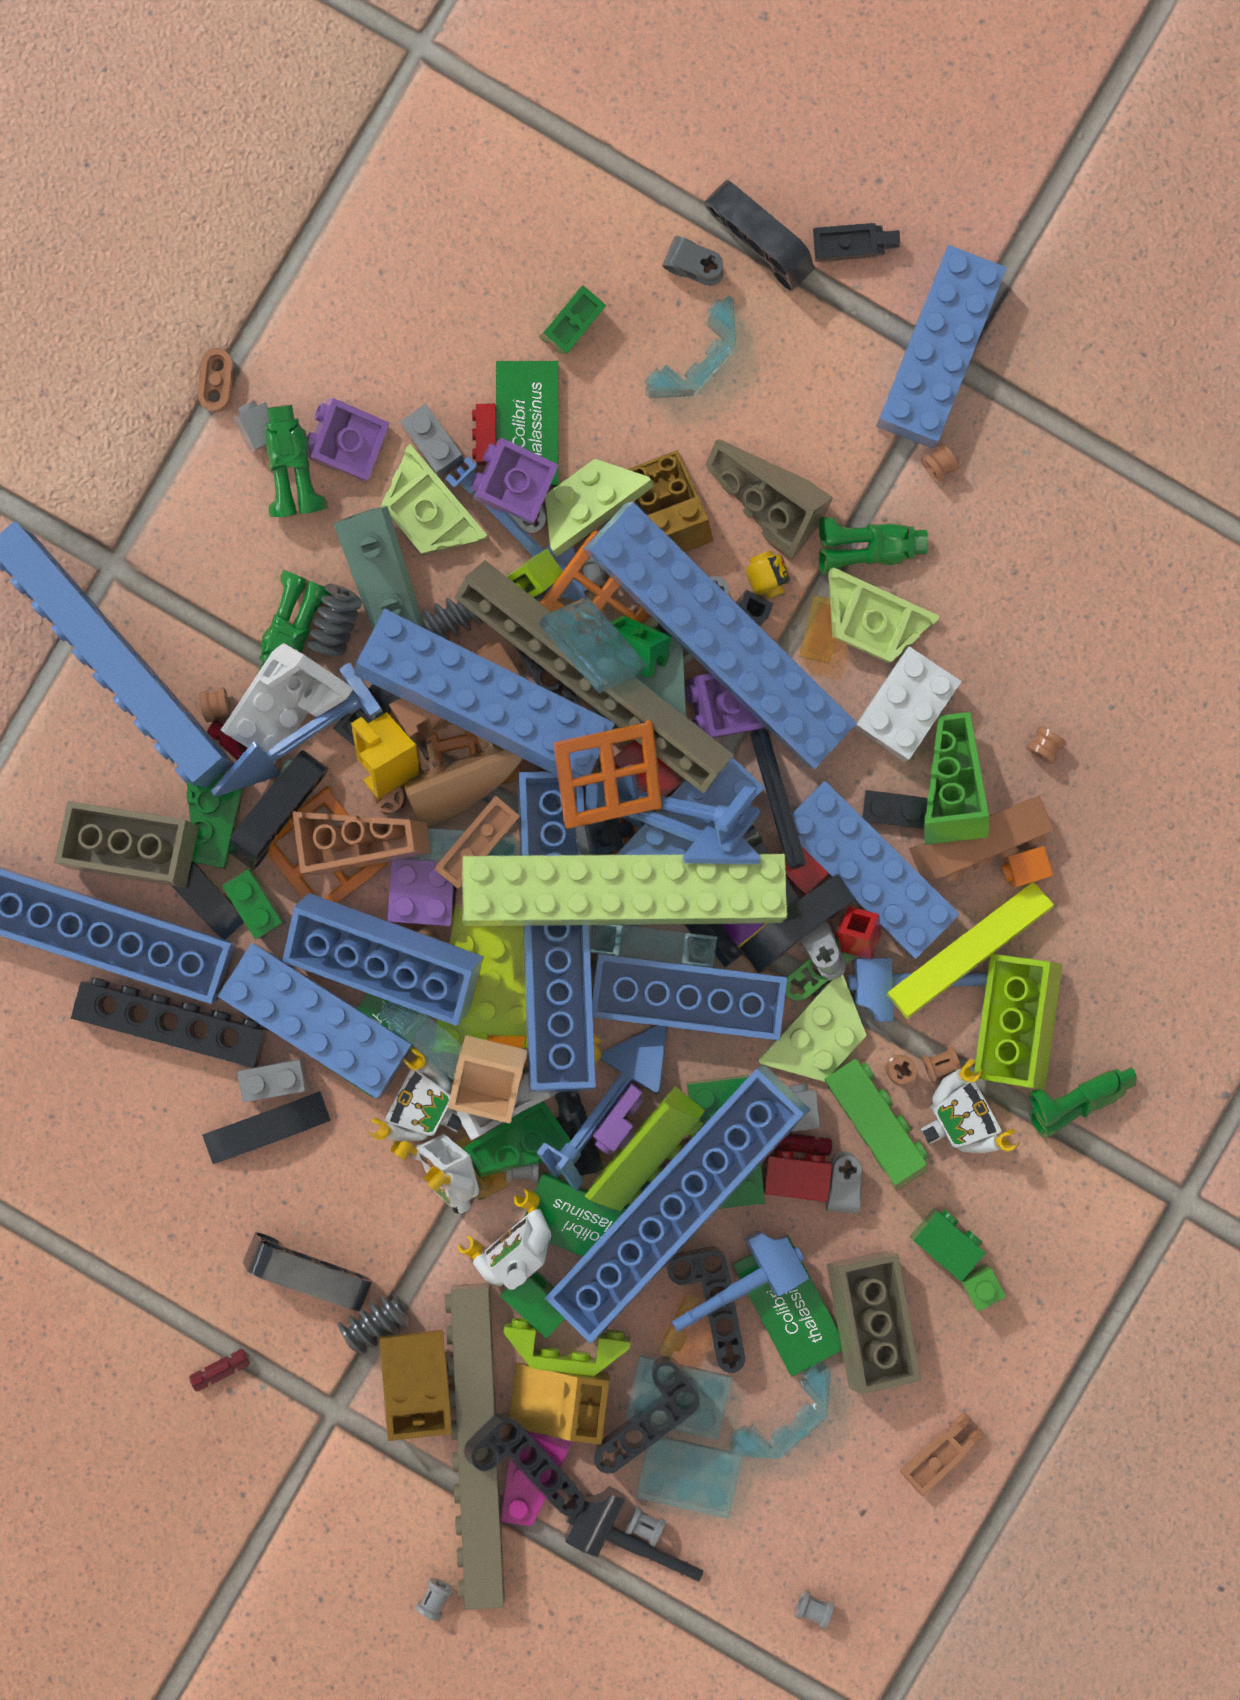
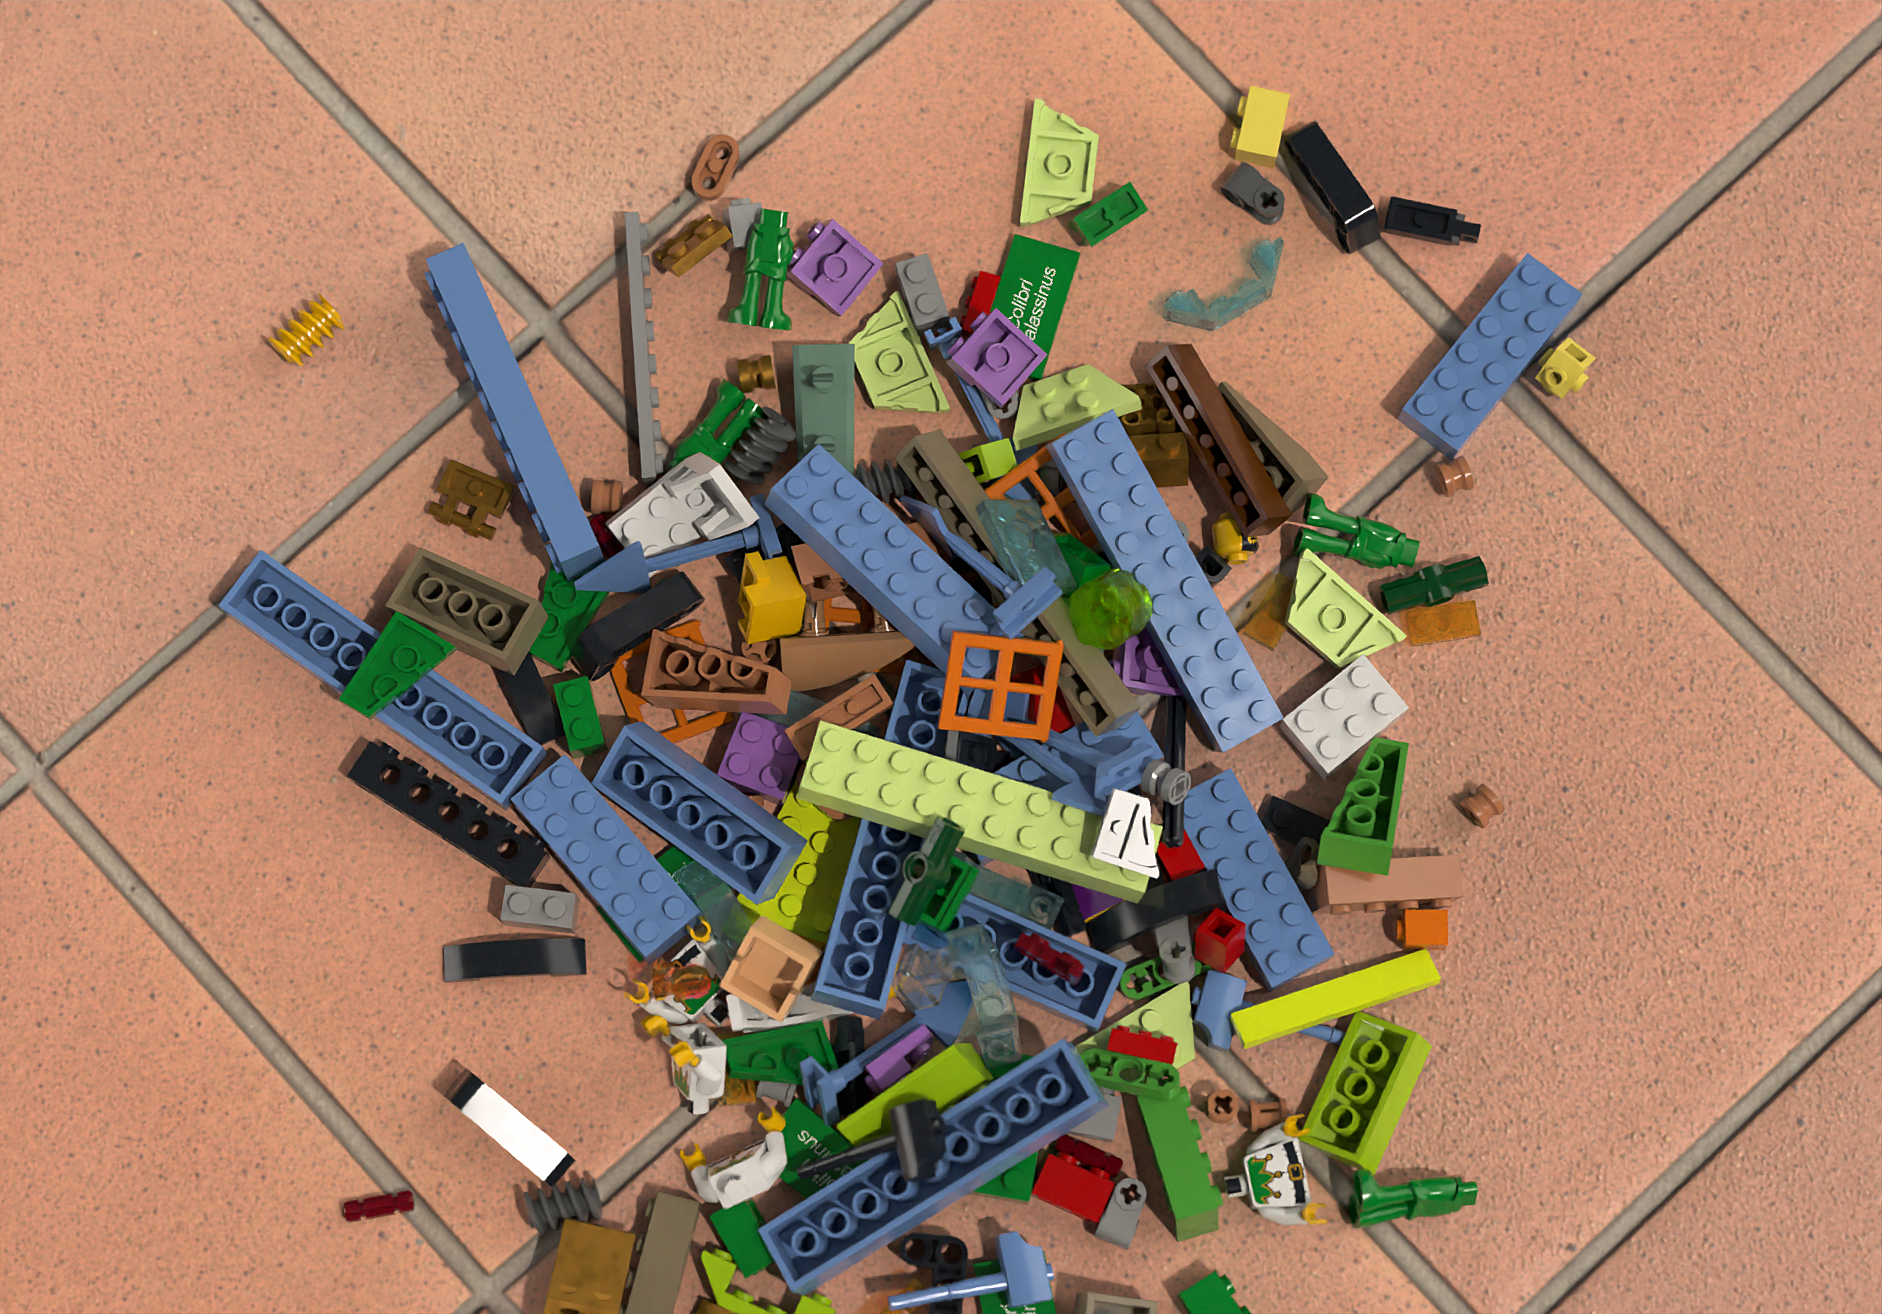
camera: 20 degrees right, 10 degrees down
(78, 913) = (394, 665): none -> green wing
(100, 732) = (473, 489): none -> pearl gold plate
(199, 550) = (644, 362): none -> light grey plate
(218, 457) = (692, 245): none -> pearl gold plate
(309, 555) = (756, 374): none -> pearl gold wheel
(415, 1110) = (684, 982): none -> clear orange animal
(514, 287) = (1058, 166): none -> yellowish green wing
(595, 959) = (926, 870): none -> dark green piece
(607, 697) = (1022, 601): none -> medium blue piece
(614, 967) = (947, 901): none -> green hinge
(618, 1039) = (923, 976): none -> clear brick
(654, 1185) = (915, 1135): none -> black piece
(682, 198) = (1261, 126): none -> light yellow brick
(682, 1042) = (990, 993): none -> clear light blue slope
(683, 678) = (1110, 609): none -> clear neon green brick
(728, 494) = (1218, 440): none -> reddish brown brick
(735, 997) = (1059, 963): none -> dark red wing
(757, 875) = (1126, 834): none -> wing
(776, 814) = (1169, 783): none -> light grey wheel
(820, 1041) = (1142, 1045): none -> red piece
(839, 1058) = (1138, 1087): none -> bright green beam
(918, 852) = (1304, 874): none -> dark tan piece
(950, 564) = (1433, 585): none -> dark green piece
(966, 595) = (1442, 623): none -> clear yellow plate
(1008, 338) = (1564, 368): none -> light yellow brick

